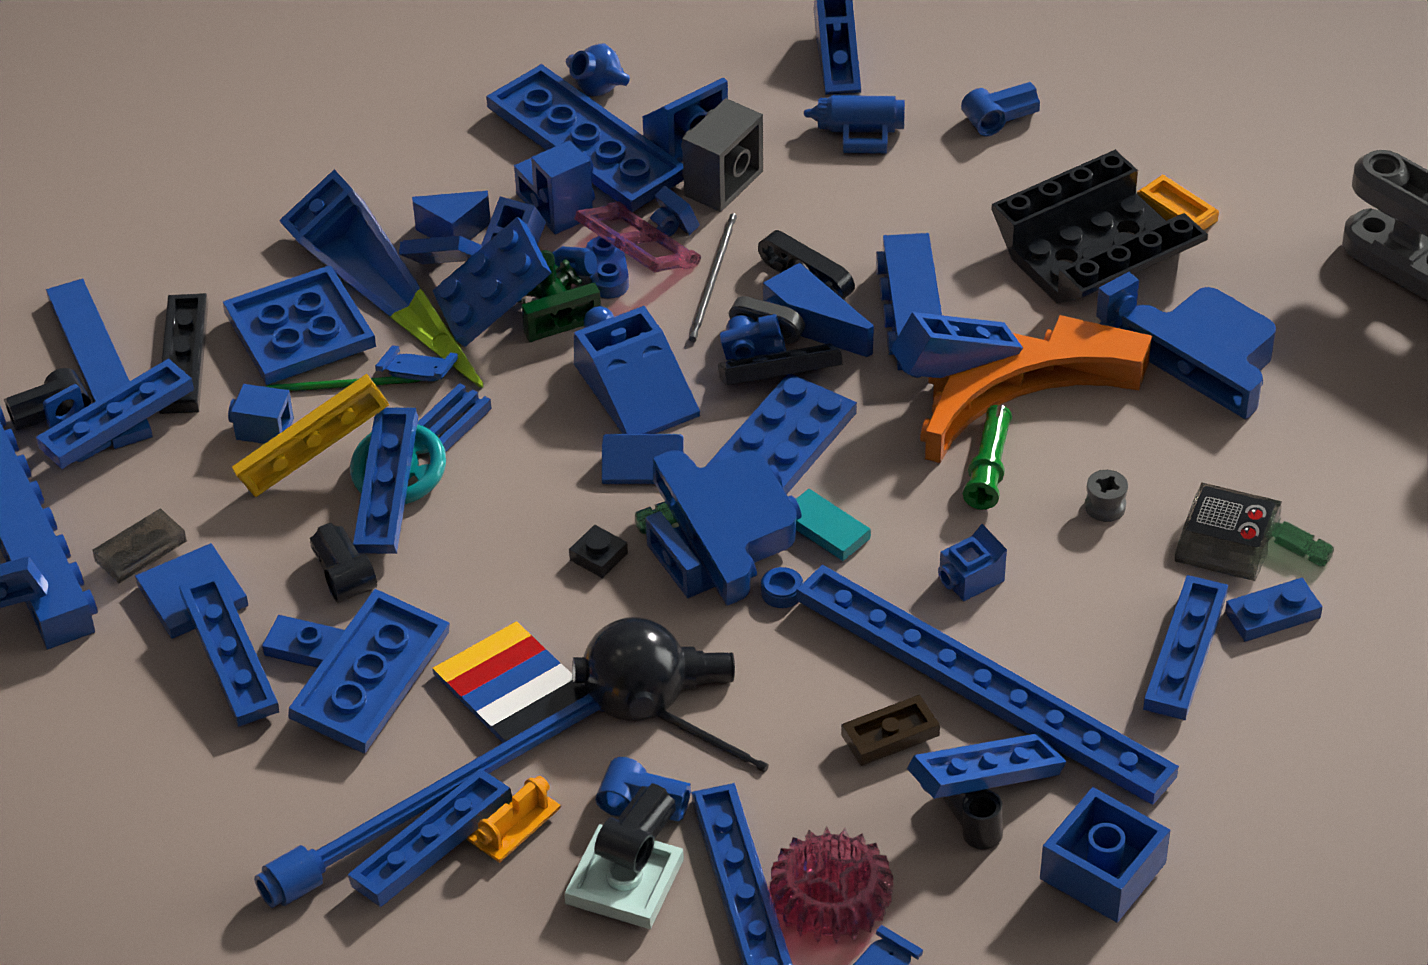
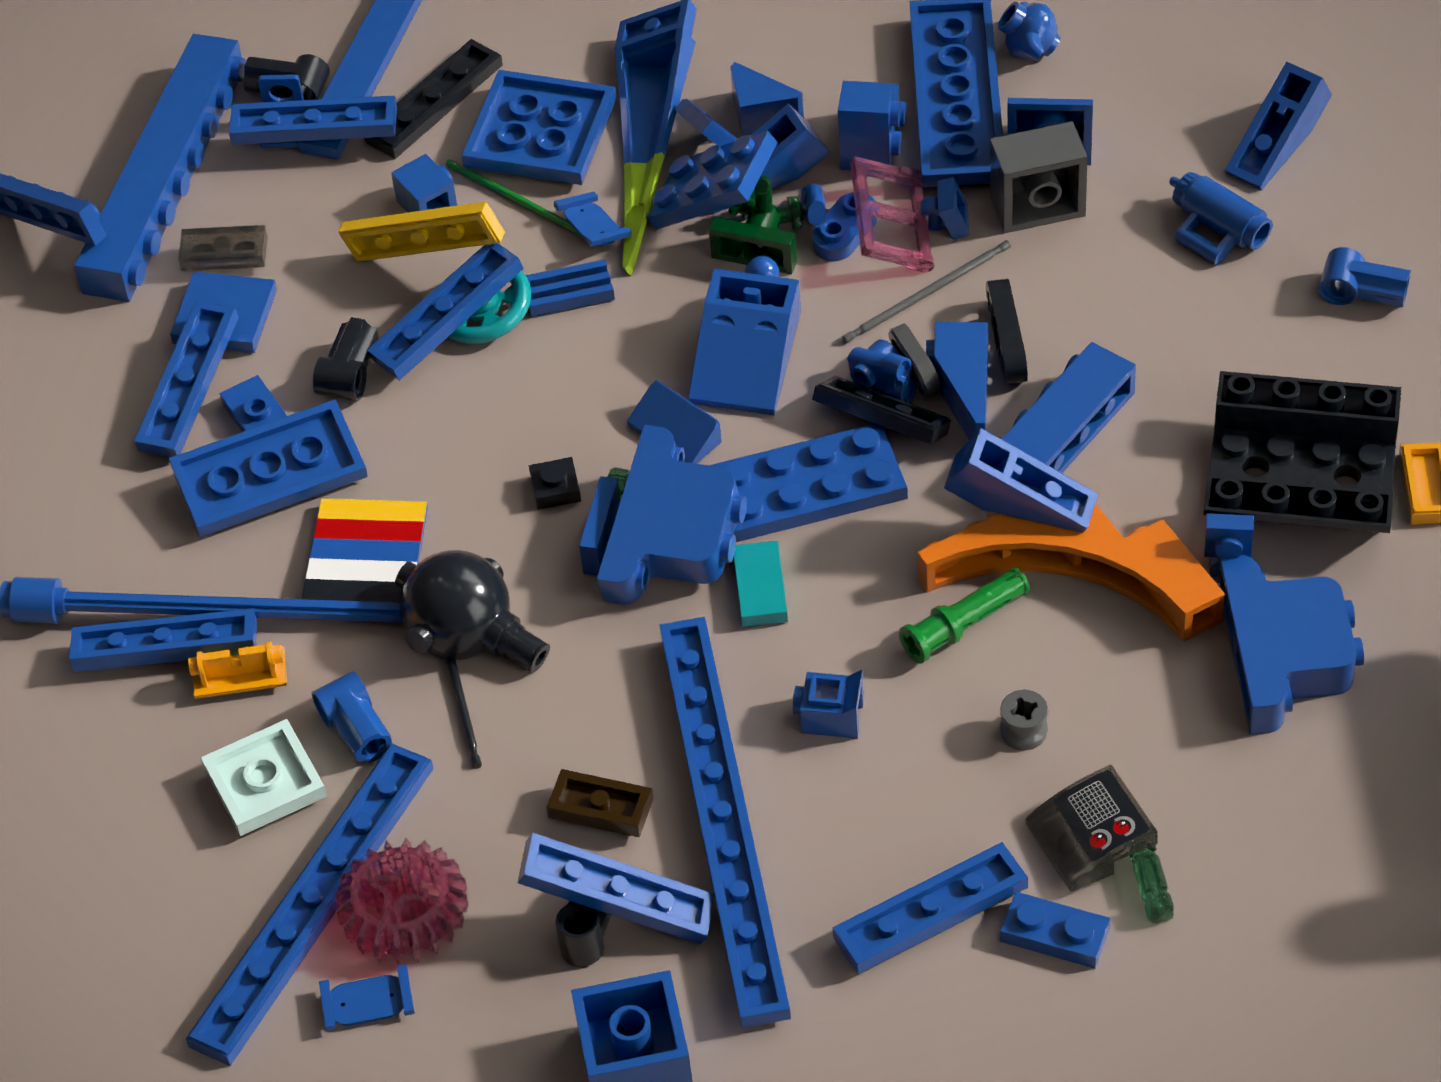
camera: 45 degrees right, 5 degrees up
(632, 836) = (280, 746): black piece -> none
(780, 587) = (660, 609): blue tile -> none

